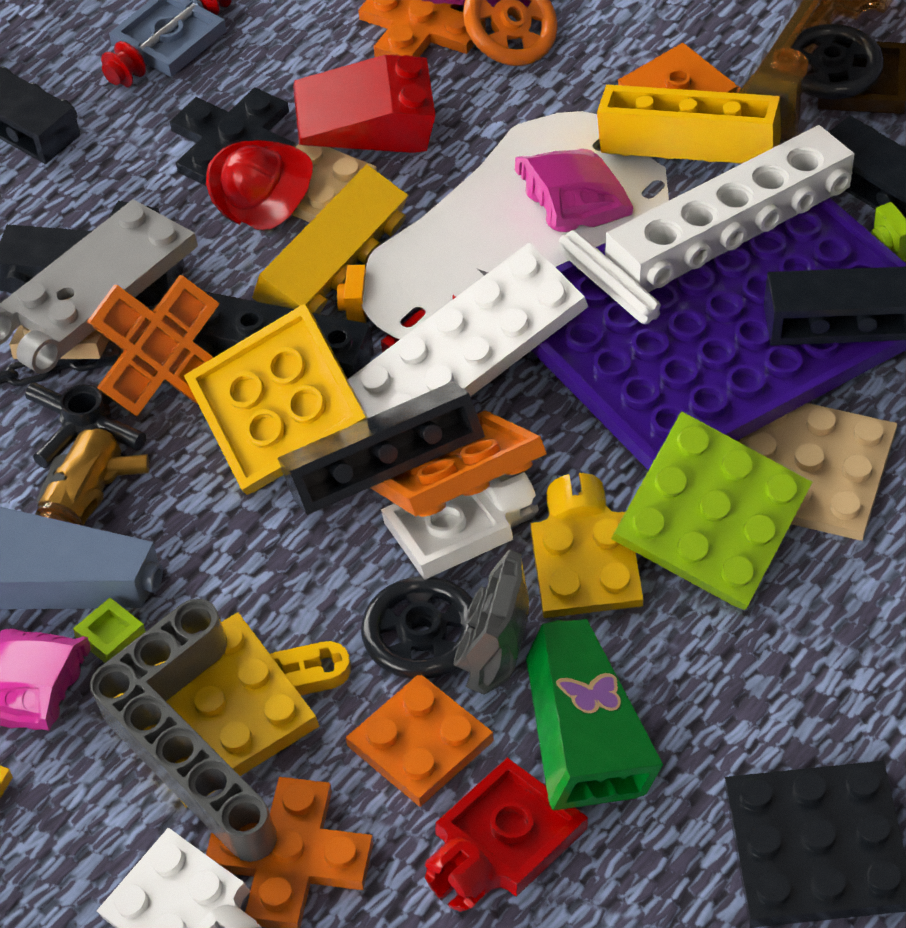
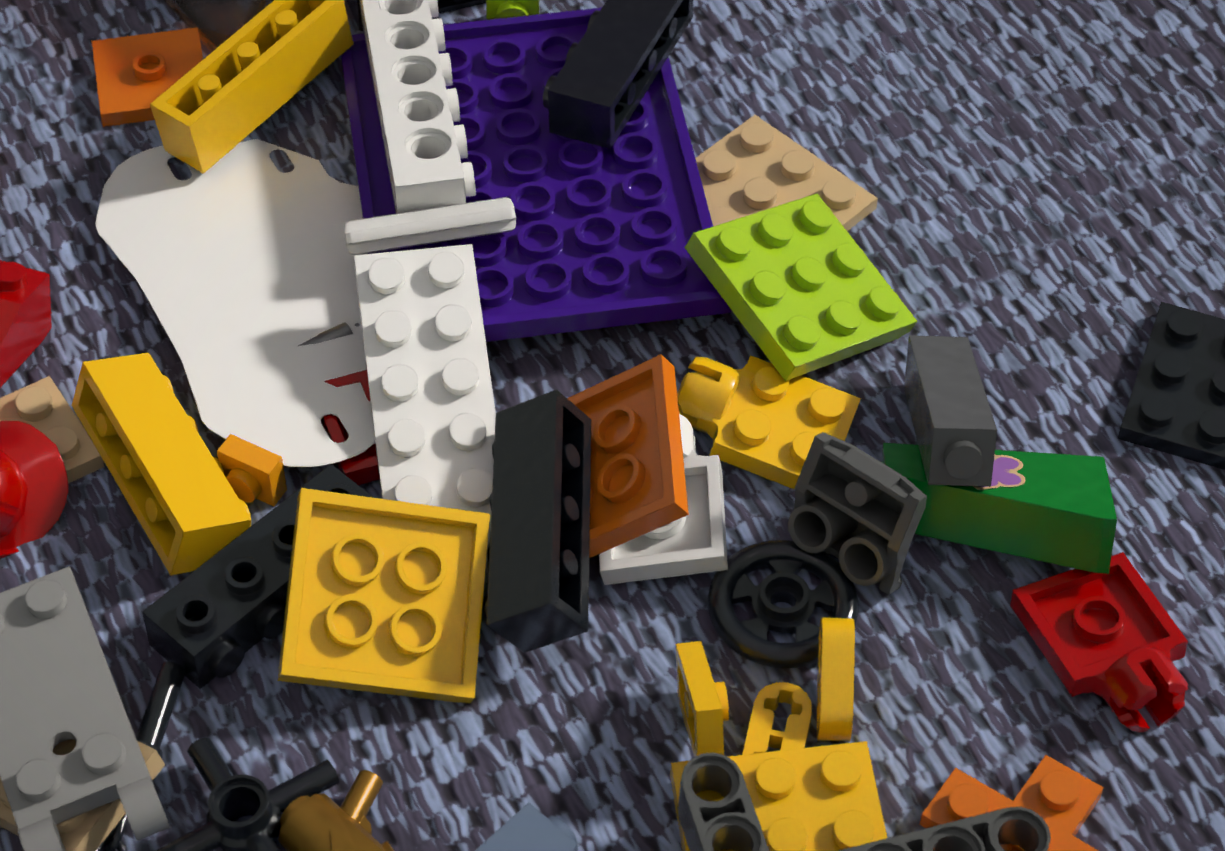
camera: 70 degrees left, 0 degrees up
(154, 342) = (216, 679): orange plate -> none
(285, 603) = (700, 699): none -> yellow plate
(358, 676) = (835, 679): none -> yellow beam
(419, 739) = (933, 666): orange plate -> none
(573, 188) = (247, 211): dark pink slope -> none
(632, 641) = (949, 411): none -> dark grey brick

